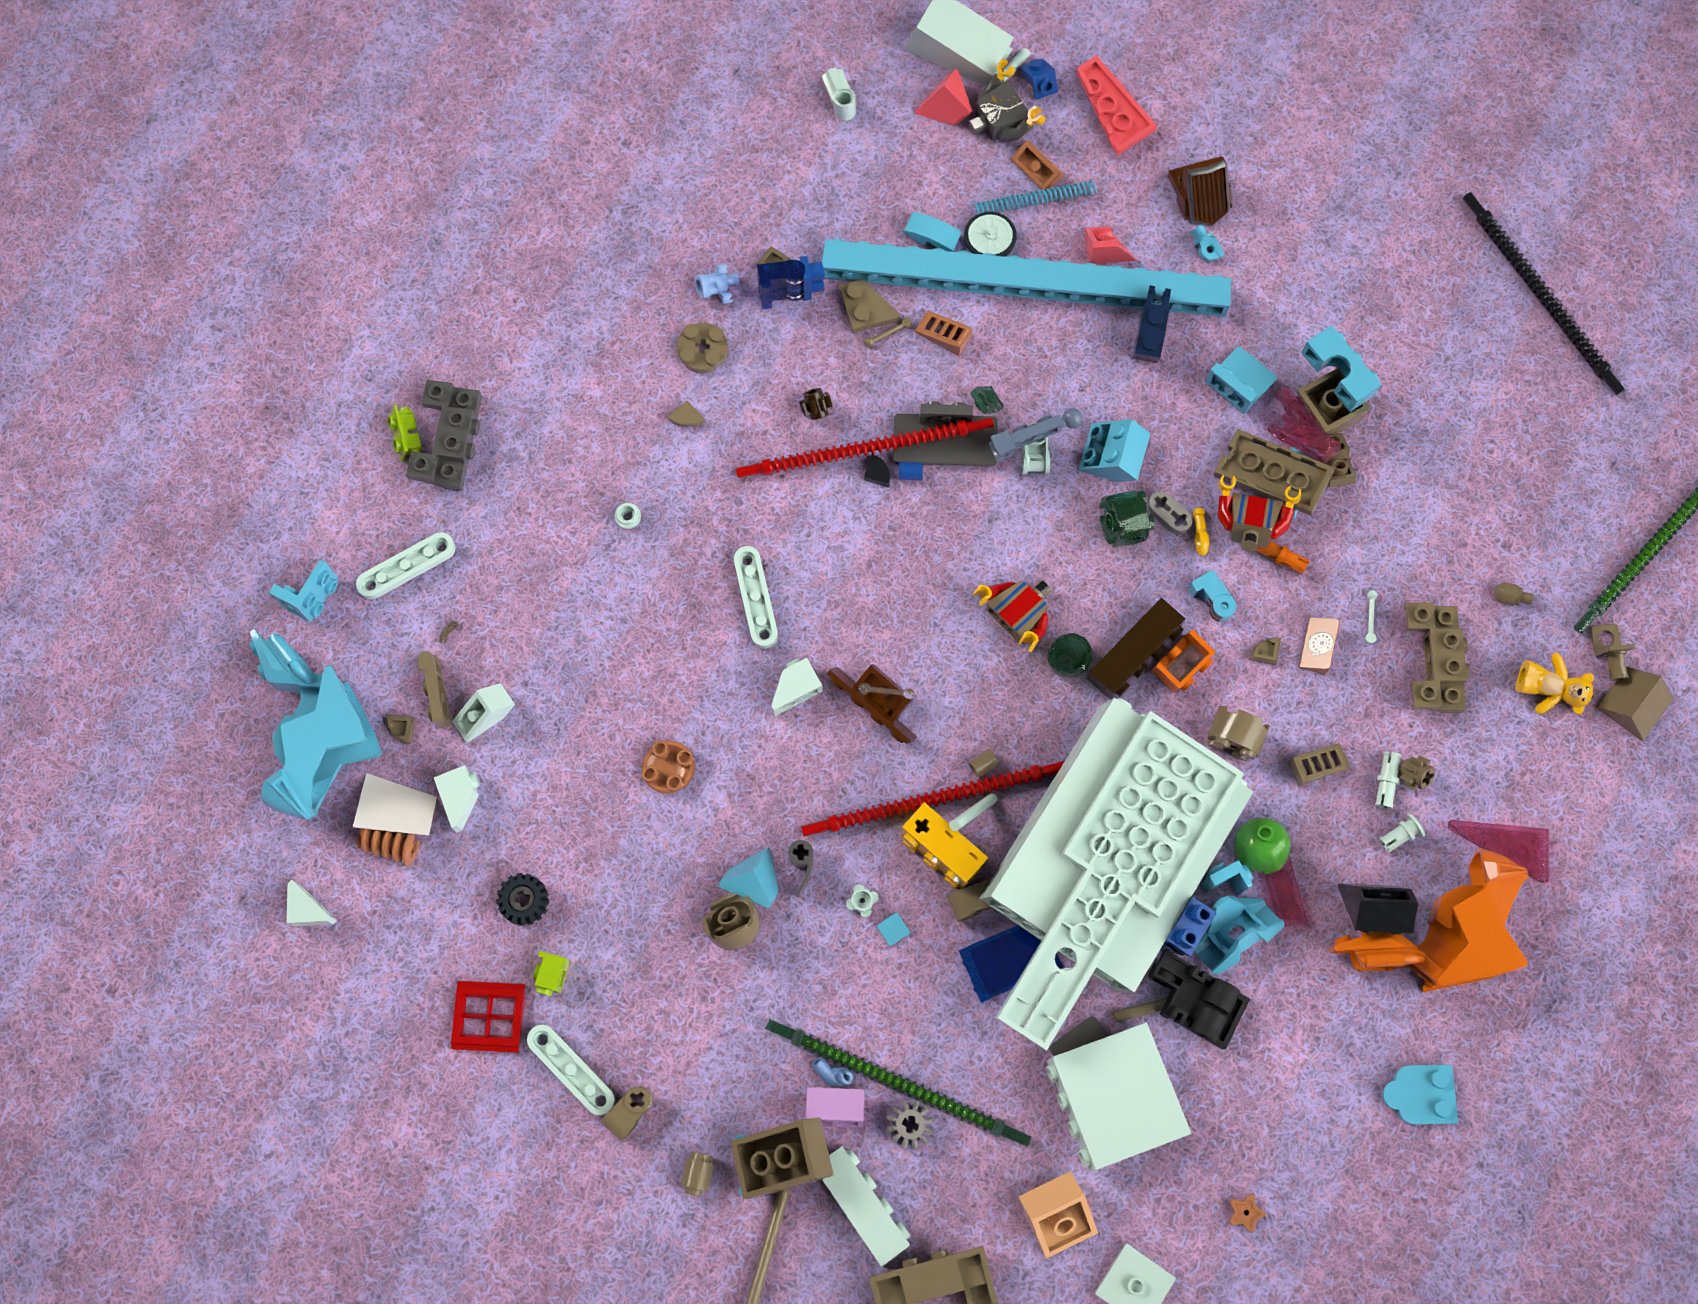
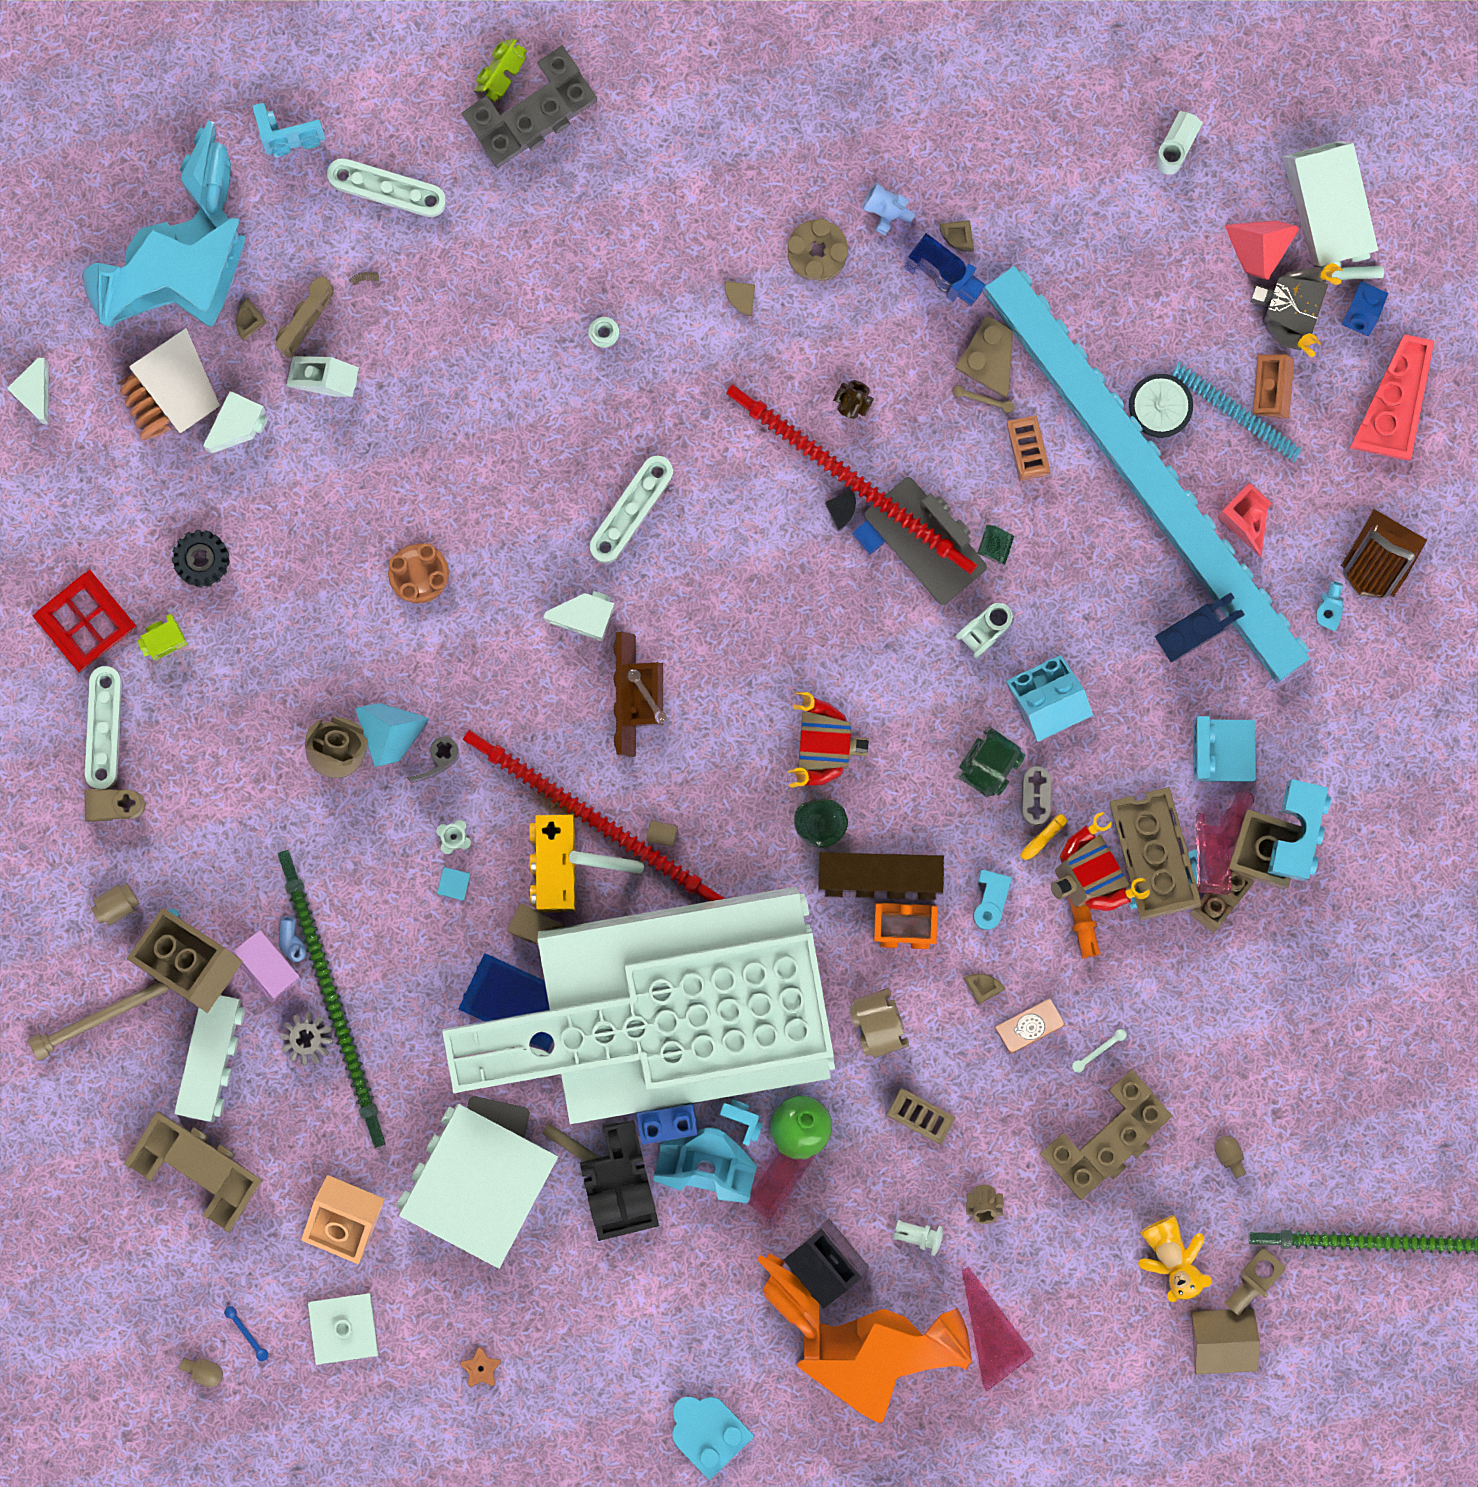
camera: 40 degrees right, 10 degrees up
(932, 230) = (1116, 351): medium azure slope -> none
(1004, 444) = (958, 599): sand blue plate -> none
(1388, 780) = (957, 1185): light aqua pin -> none

